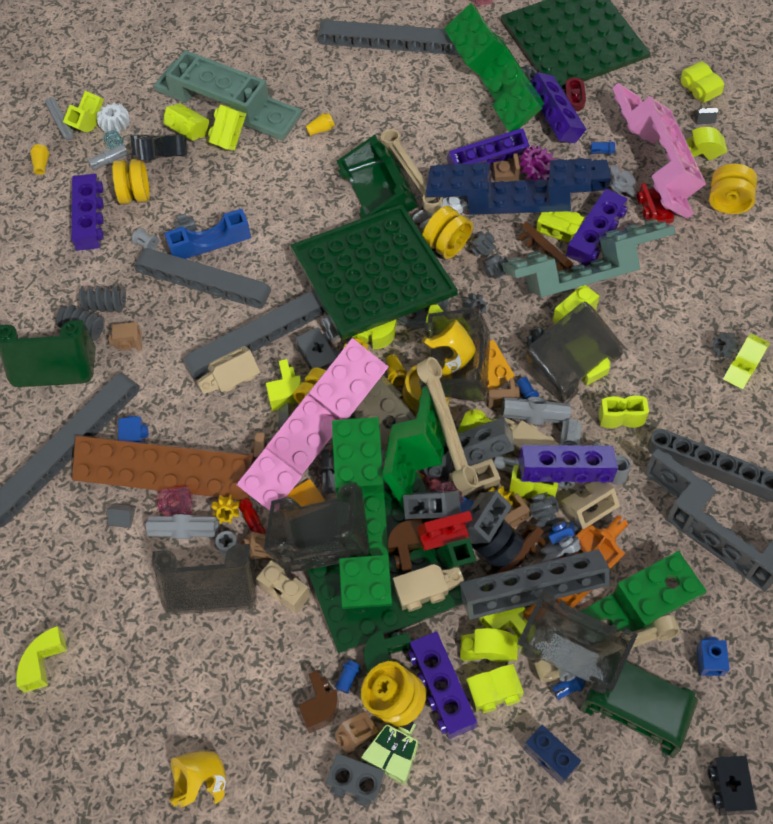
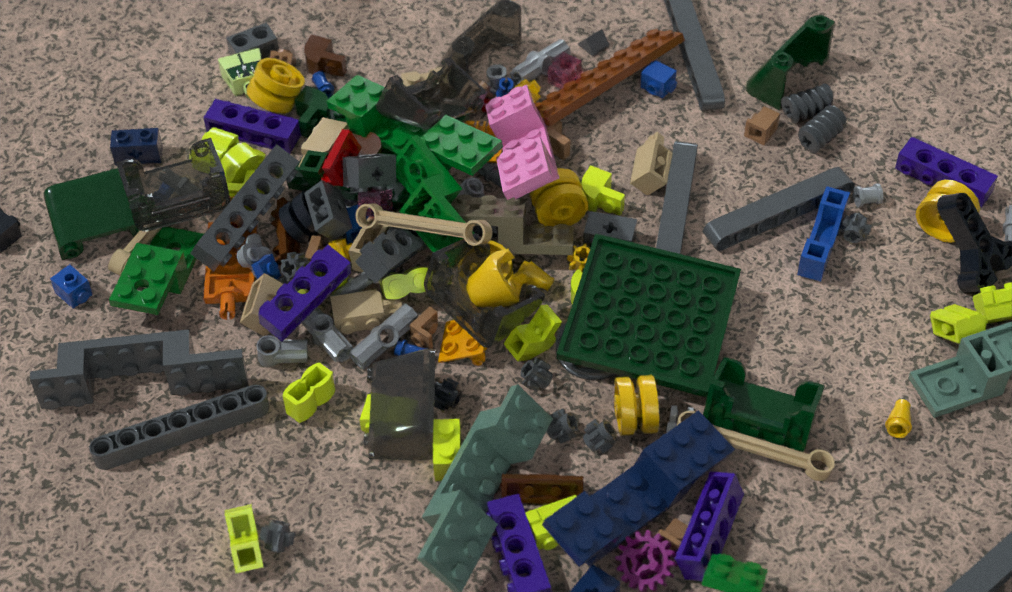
camera: 130 degrees right, 10 degrees down
(237, 524) = (504, 88): none -> blue pin

